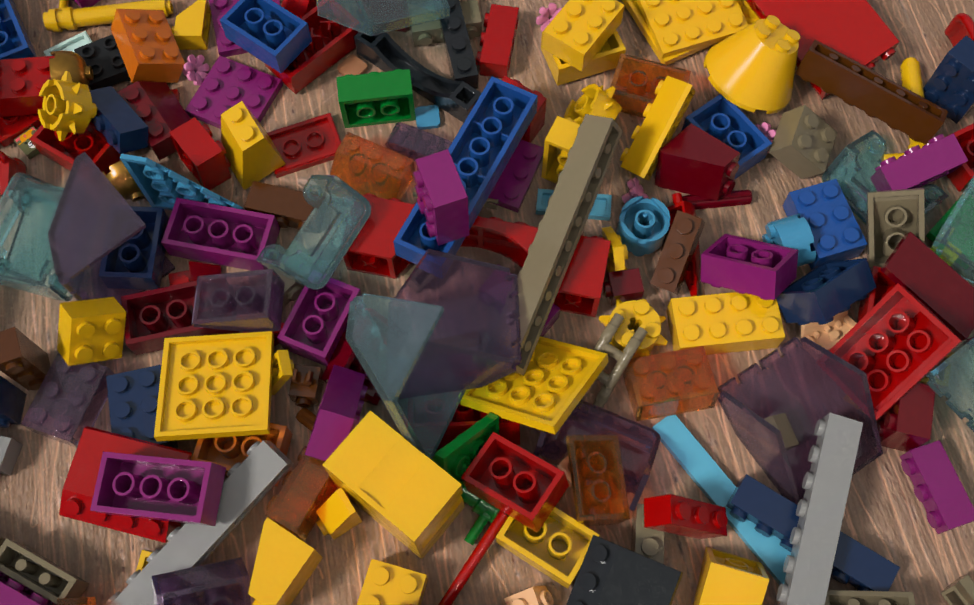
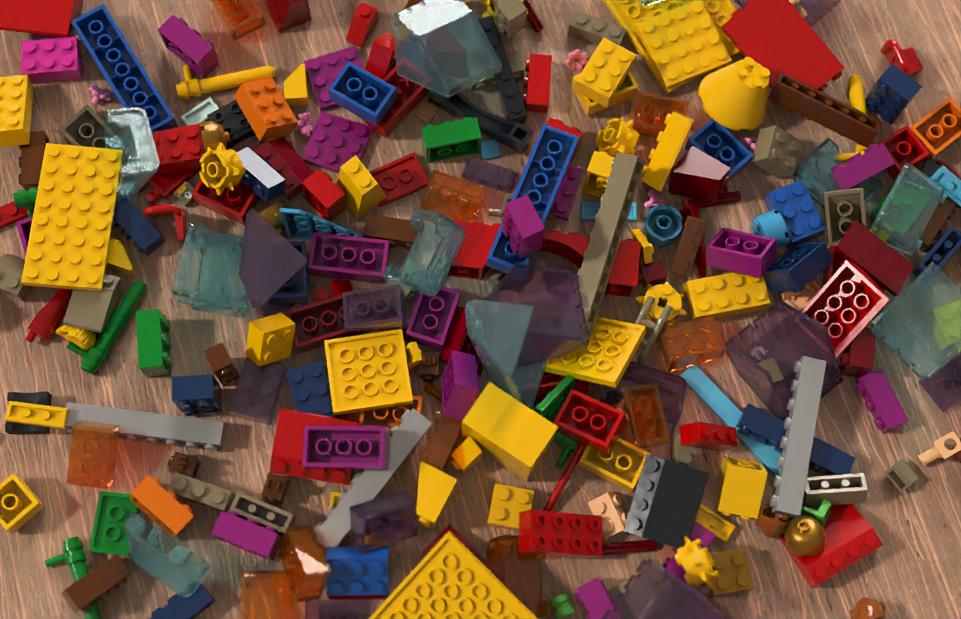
camera: 10 degrees left, 5 degrees up
(65, 538) = (275, 488): none -> reddish brown brick

